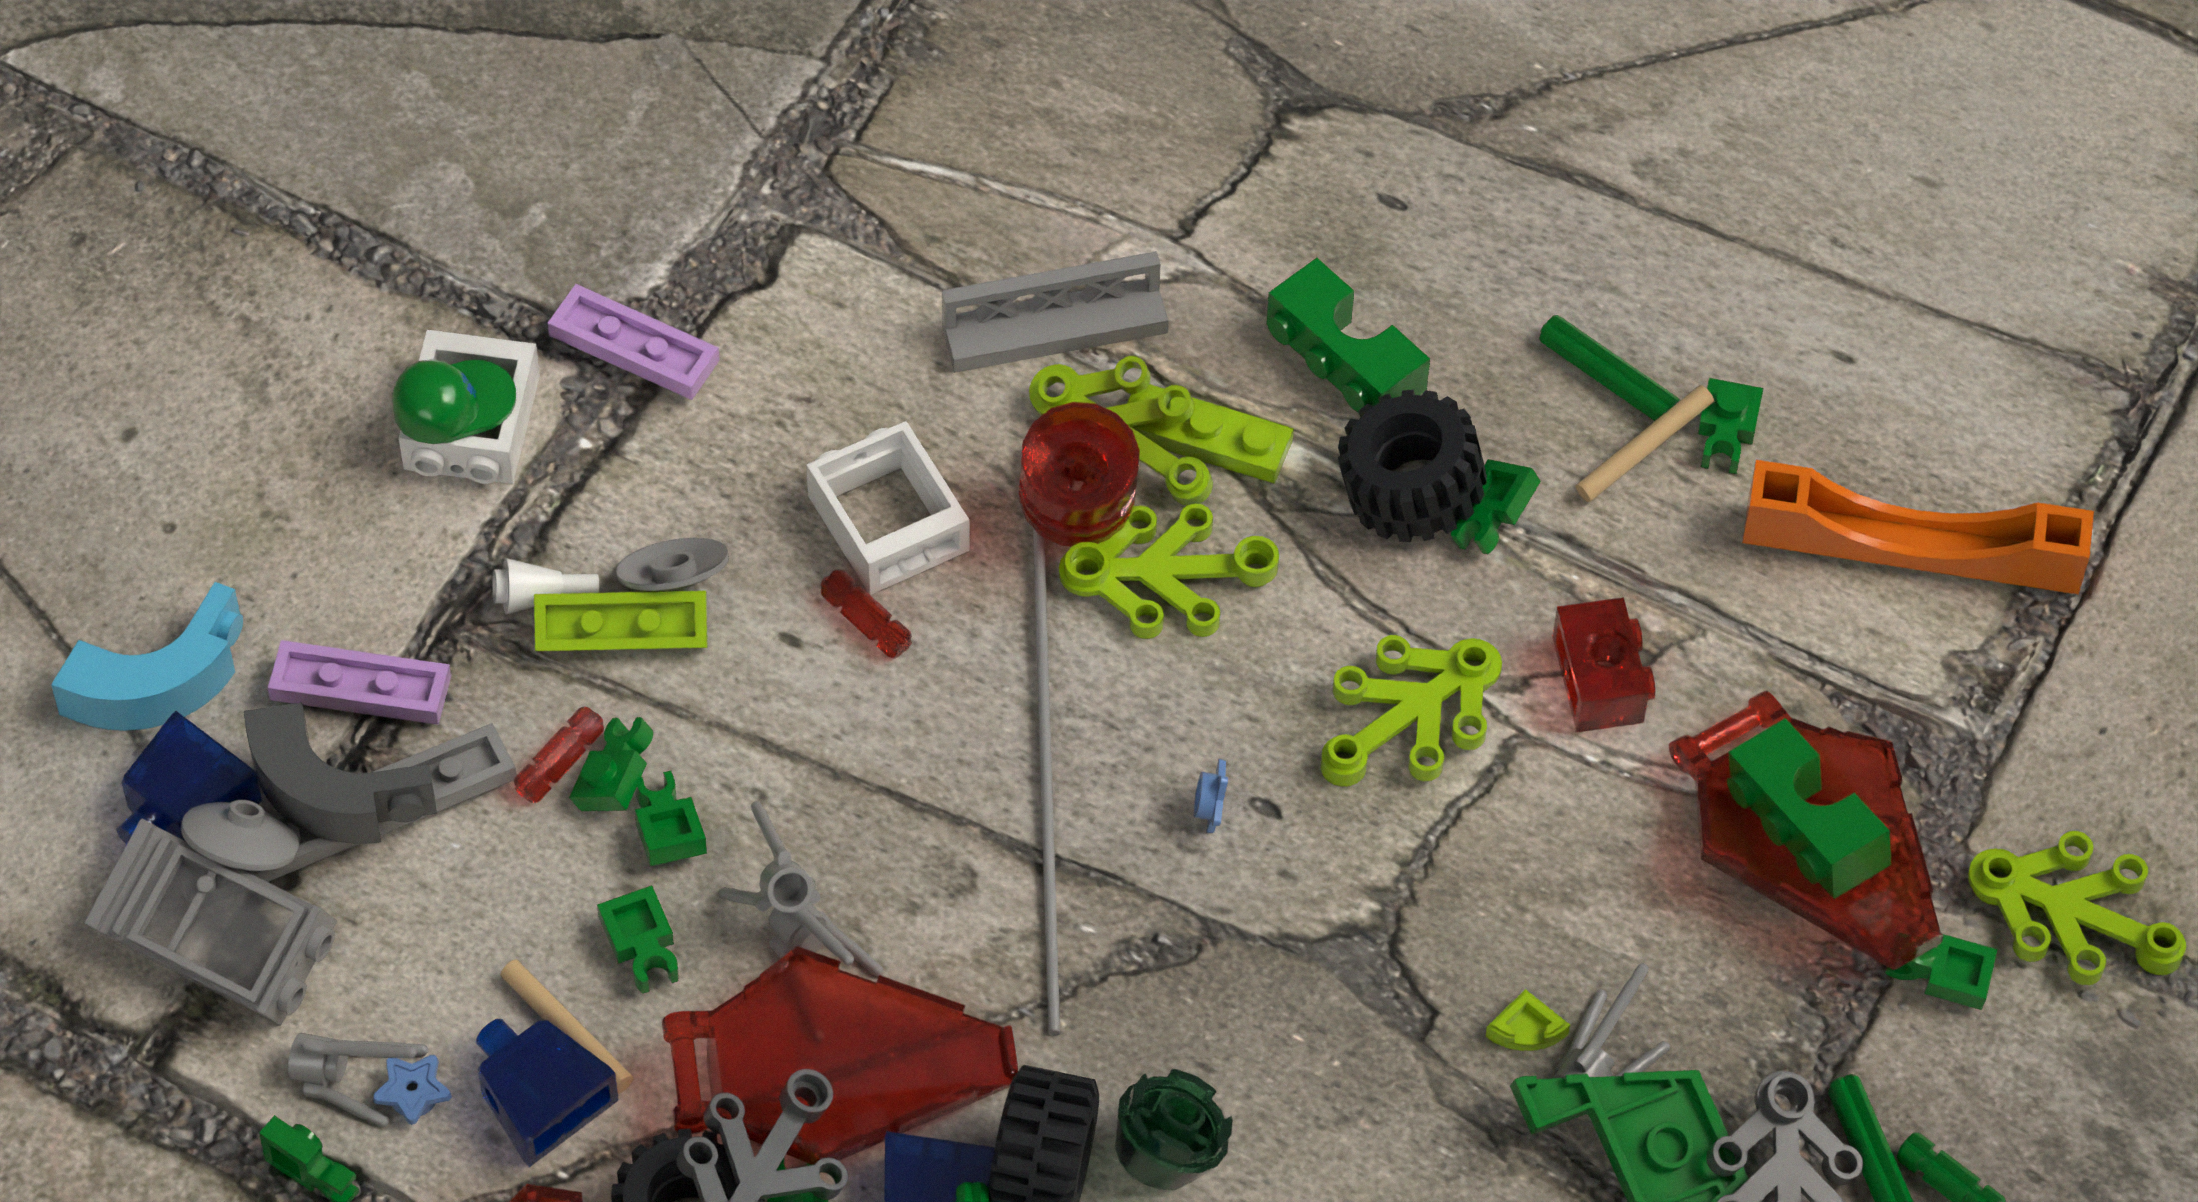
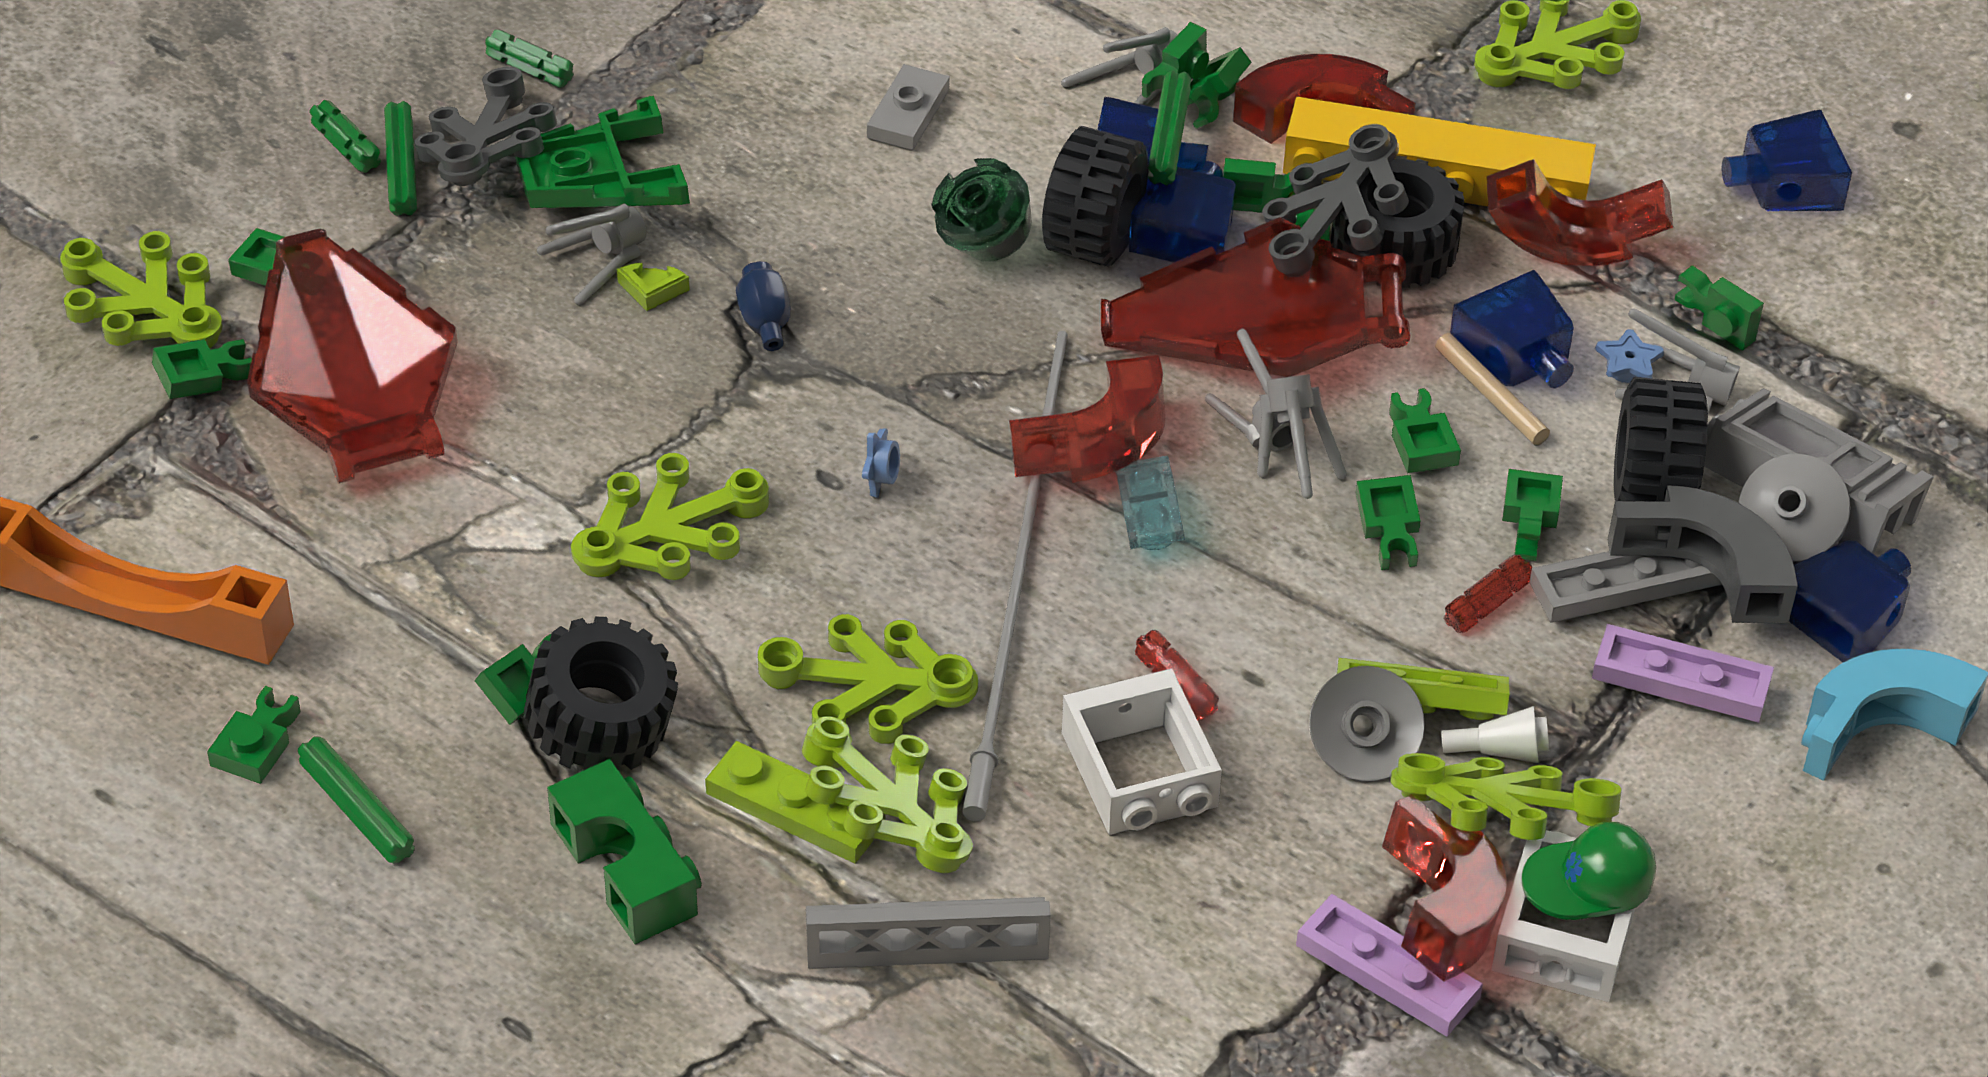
camera: 170 degrees left, 10 degrees down
(381, 889) = (1660, 439): none -> black tyre
(519, 861) = (1532, 502): none -> green plate
(545, 492) = (1484, 779): none -> lime plant
(562, 369) = (1468, 879): none -> clear red arch
(613, 774) = (1440, 564): green plate -> none
(923, 797) = (1150, 504): none -> clear light blue slope
(953, 896) = (1099, 437): none -> clear red arch
(1084, 446) = (946, 699): clear red wheel -> none
(1393, 1003) = (764, 303): none -> dark blue plant
(1598, 693) = (478, 522): clear red brick -> none
(1644, 443) = (351, 715): tan bar -> none
(1831, 842) = (340, 314): green arch -> none
(1969, 811) = (195, 369): none -> green plate

